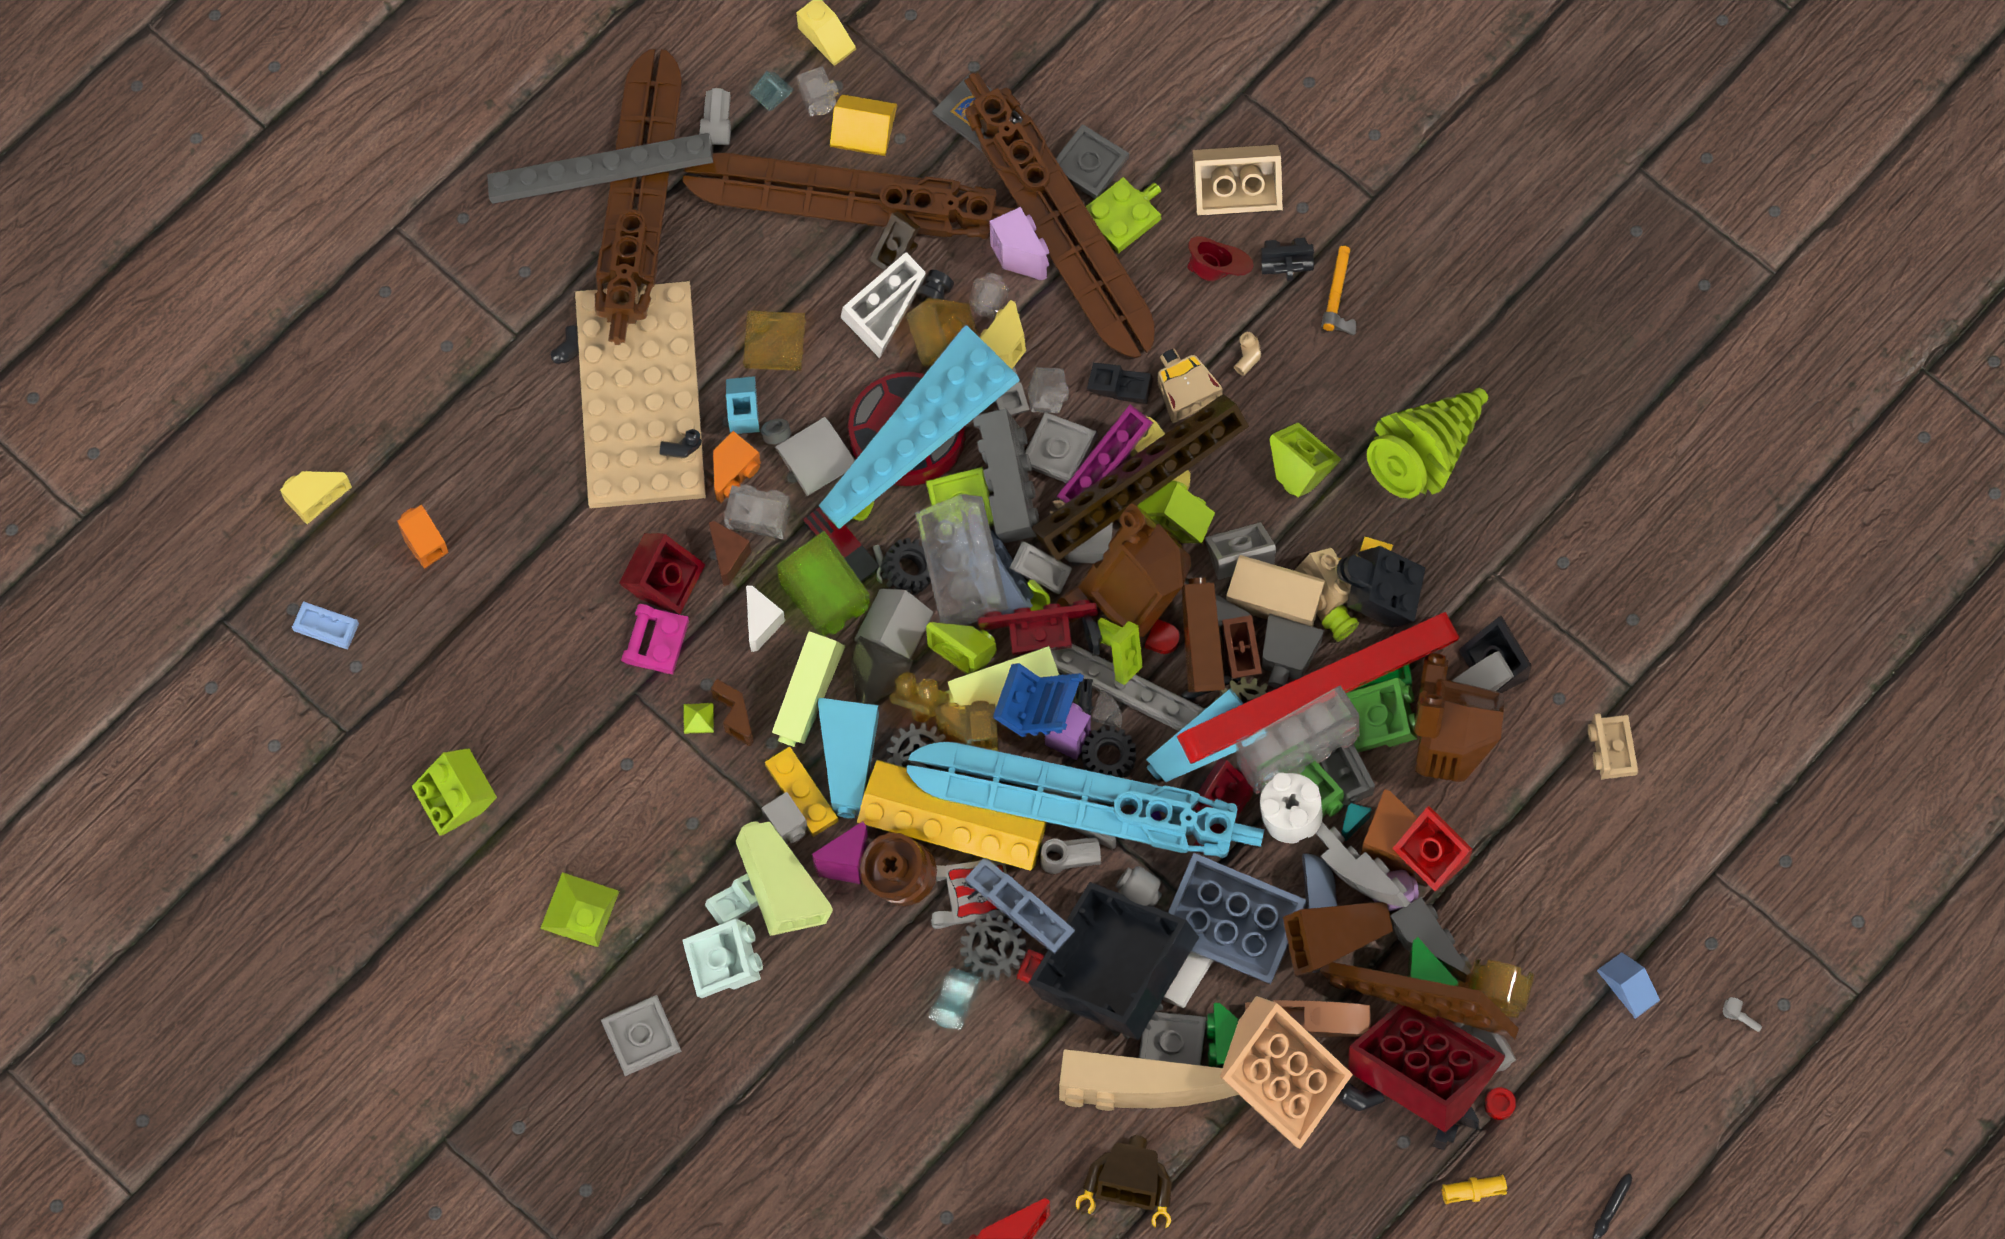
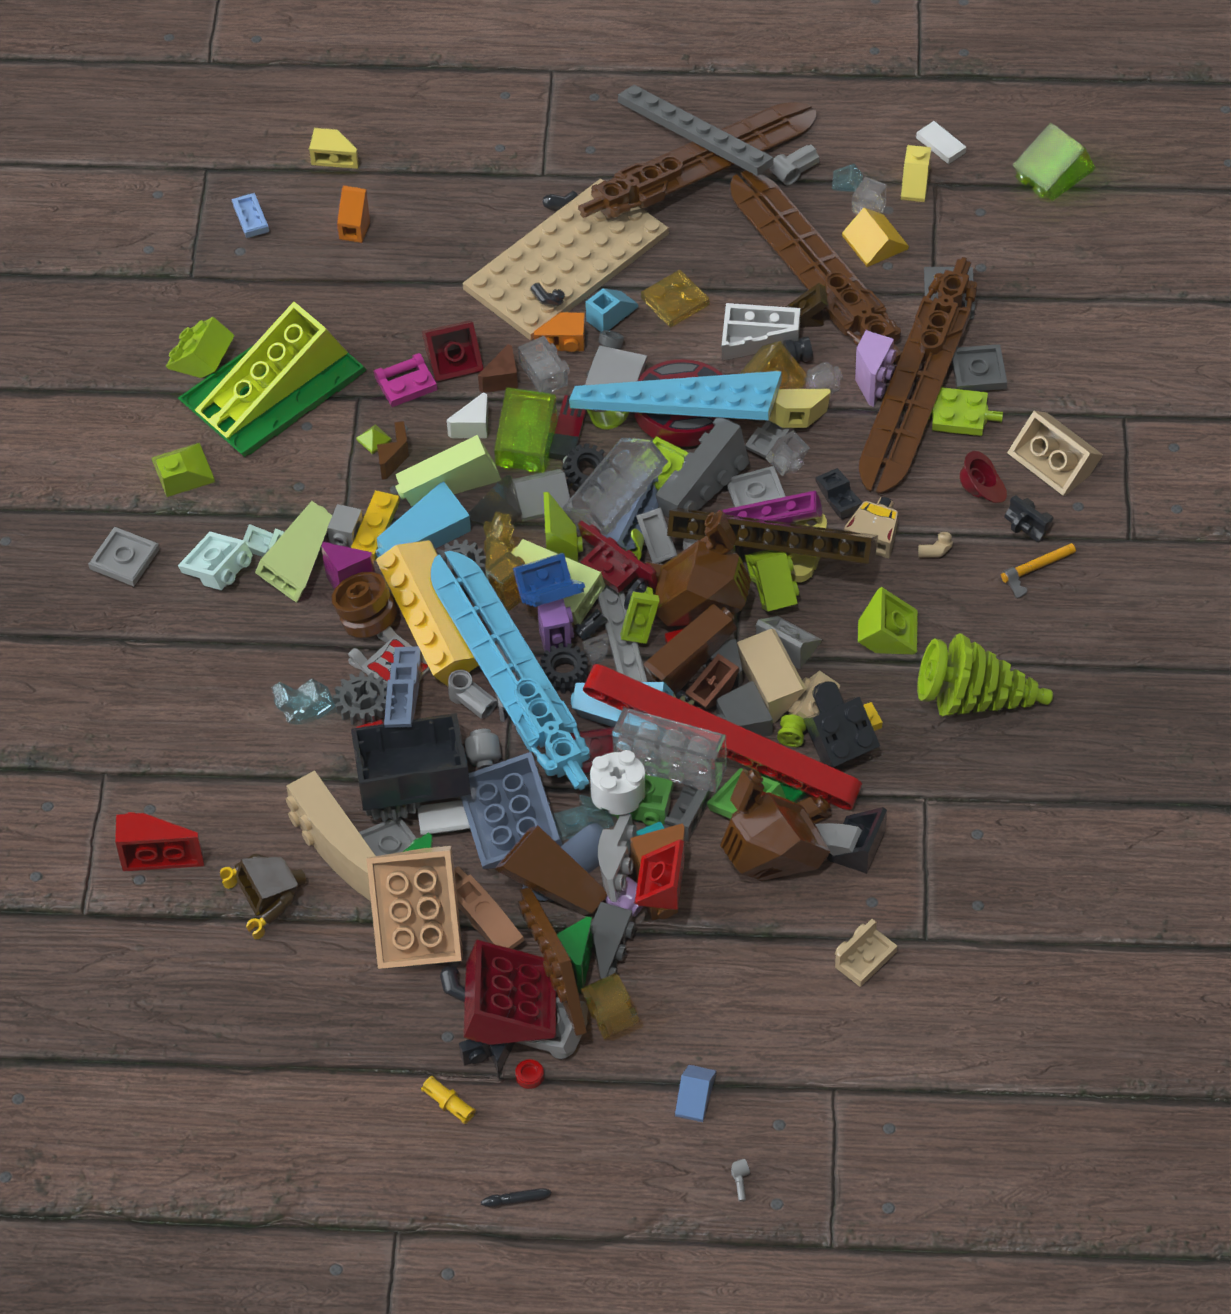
camera: 50 degrees right, 15 degrees down
(552, 758) = (273, 382): none -> neon yellow piece
(1280, 863) = (575, 819): none -> clear light blue slope

